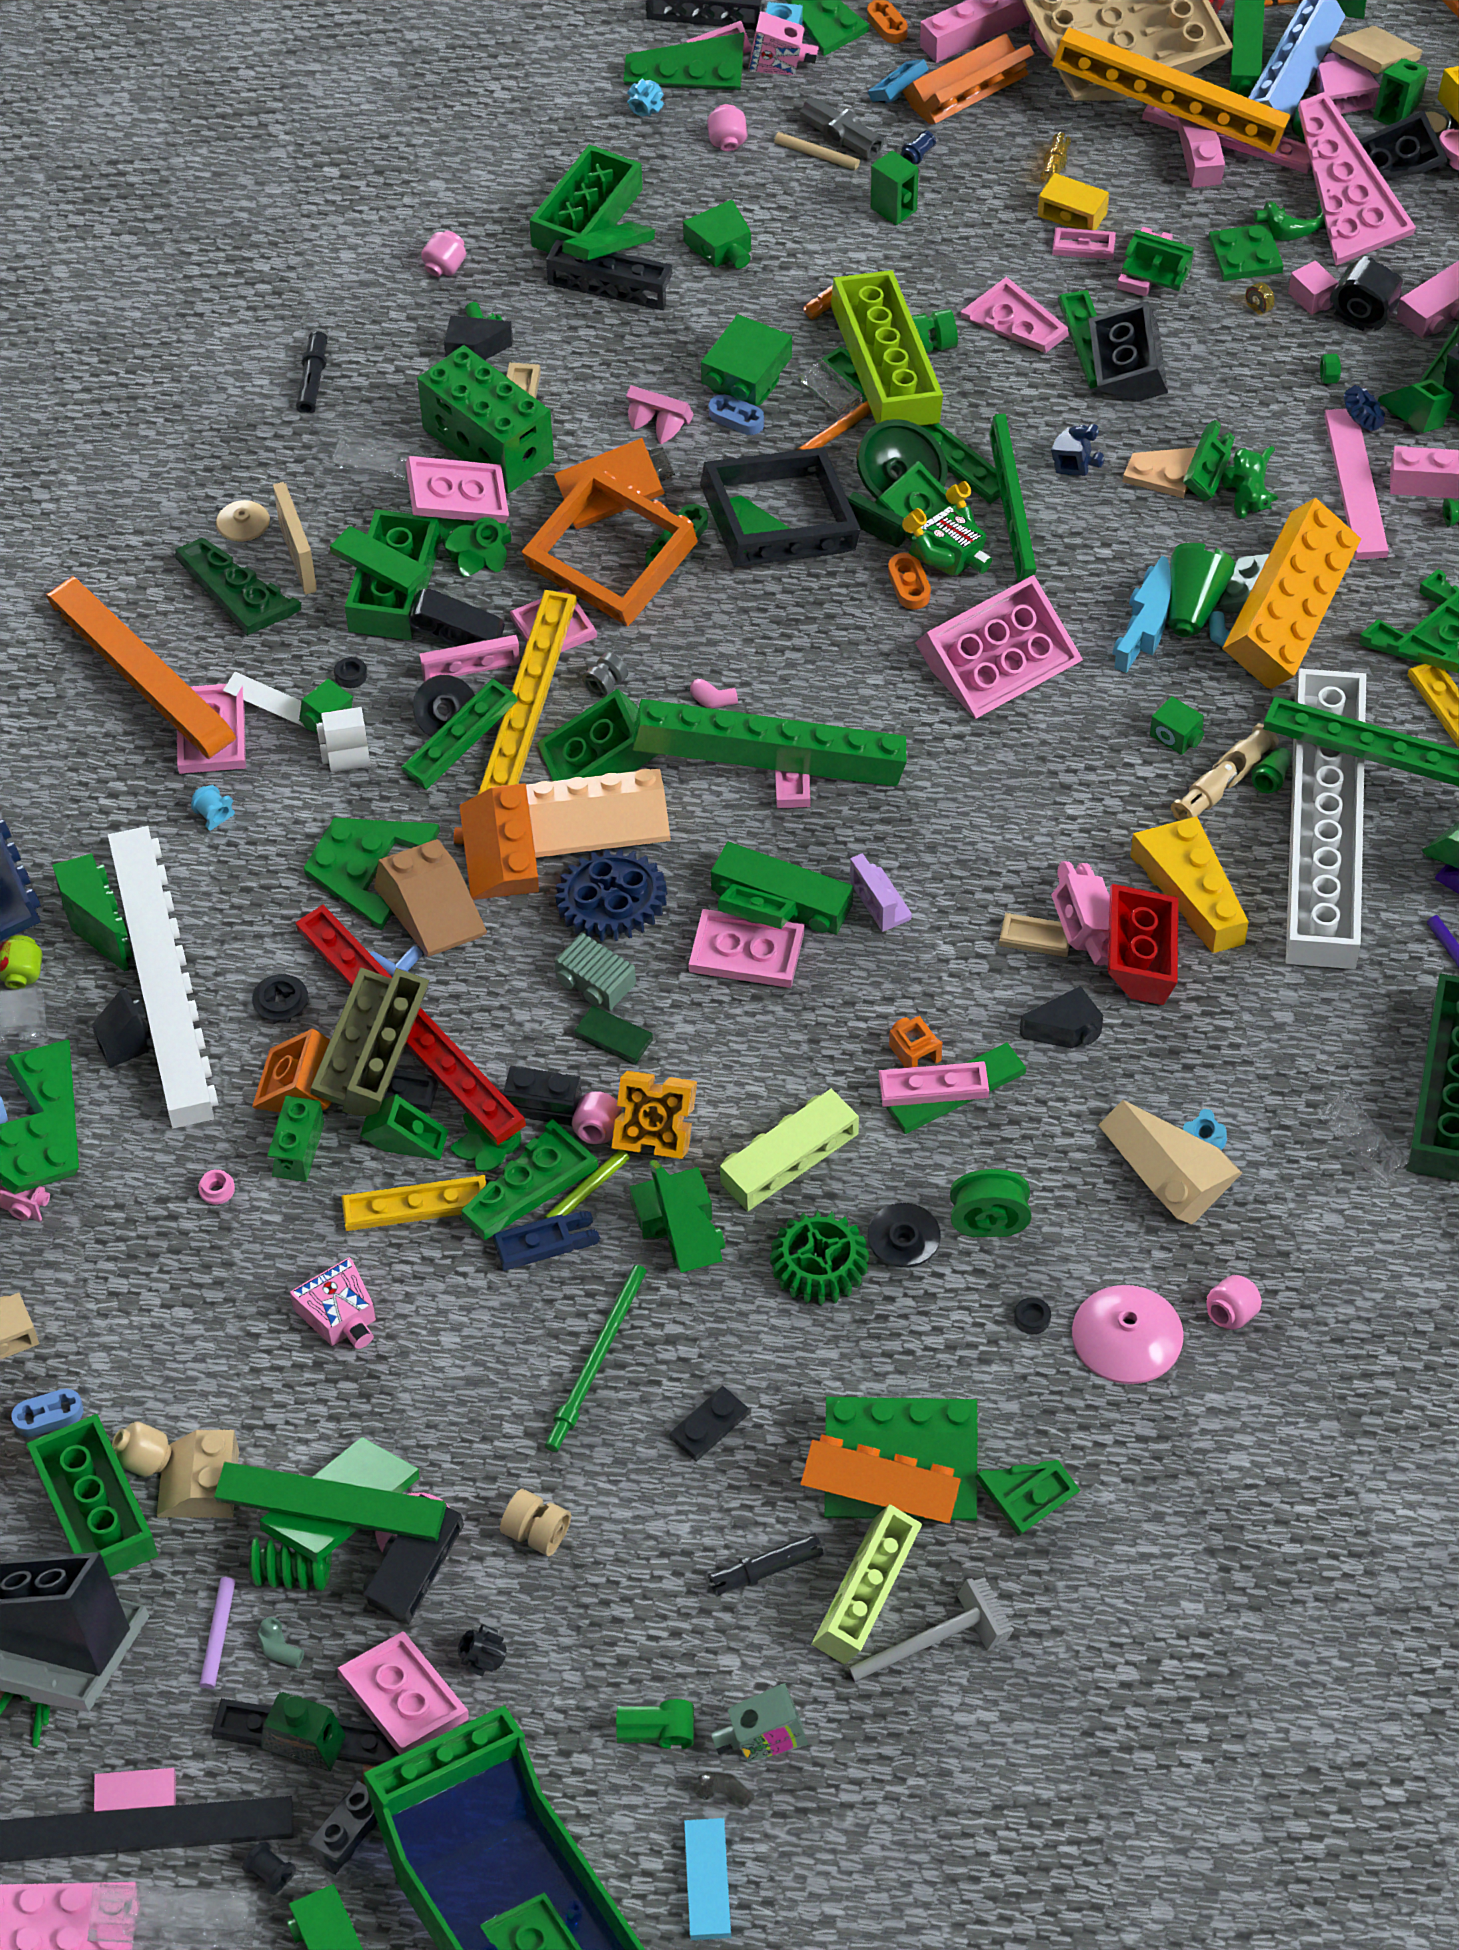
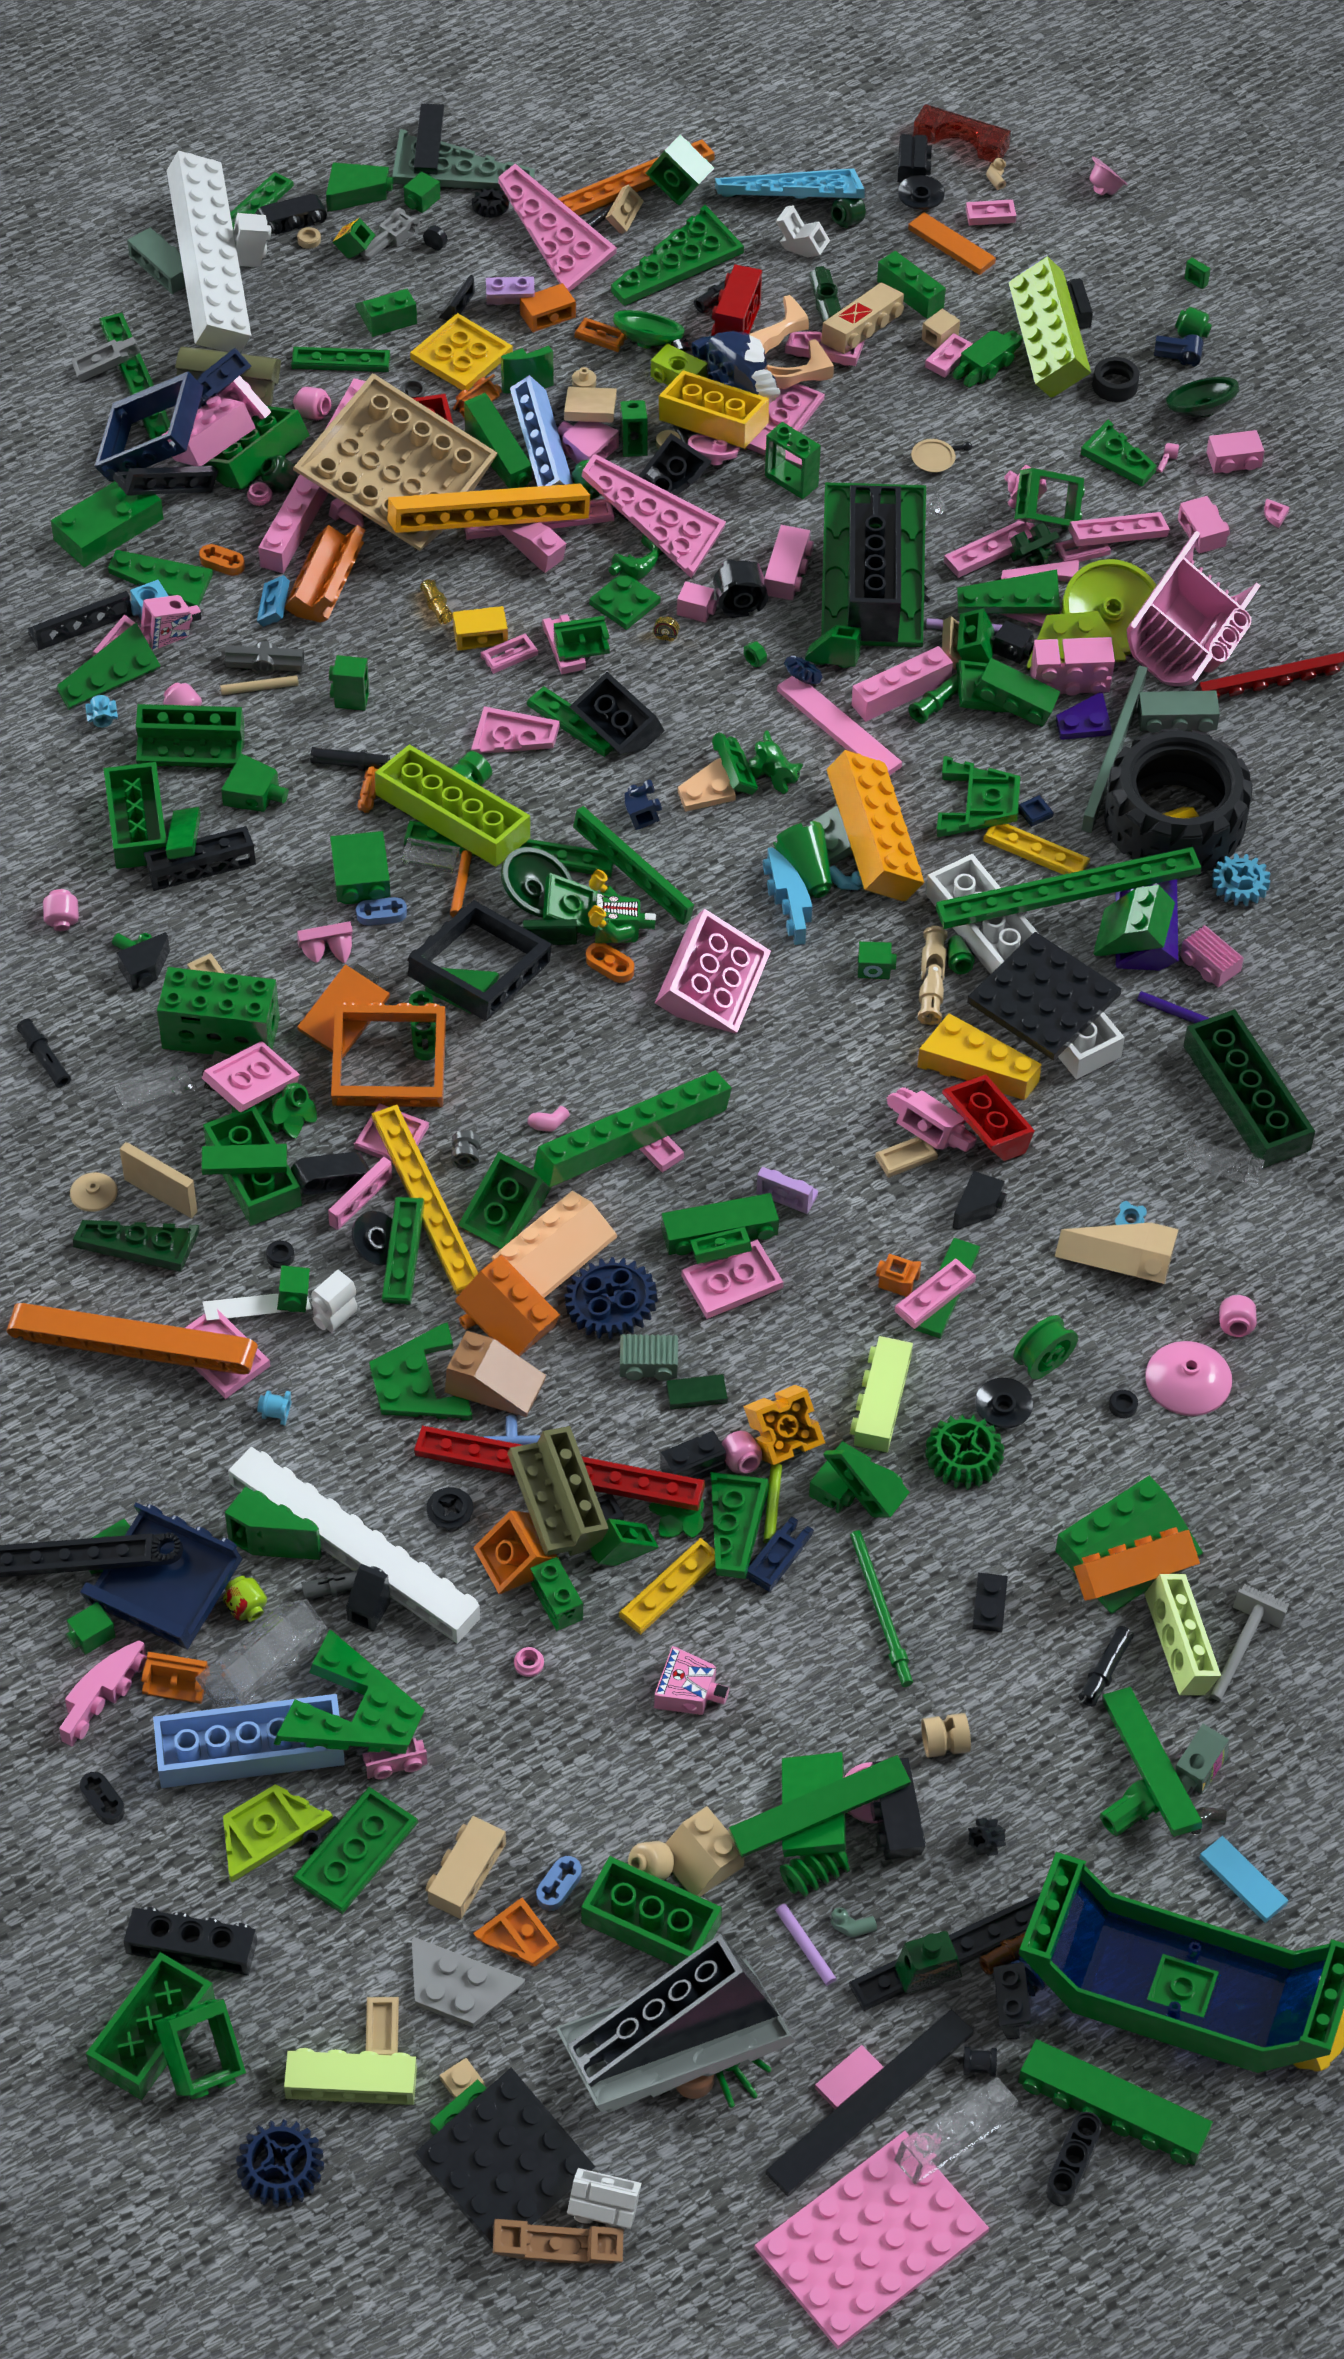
camera: 40 degrees left, 0 degrees up
(96, 995) = (328, 1585): none -> dark grey pin
(402, 1693) = (964, 1897): bright pink plate -> none
(701, 158) = (189, 735): none -> green brick
(713, 1691) = (1152, 1761): none -> green tile
(830, 255) = (360, 760): none -> black pin
(918, 147) = (331, 644): dark blue pin -> none
(1028, 1491) = (1223, 1514): green wing -> none
(1309, 854) = (1044, 995): none -> black plate
(1398, 25) = (584, 378): none -> tan tile

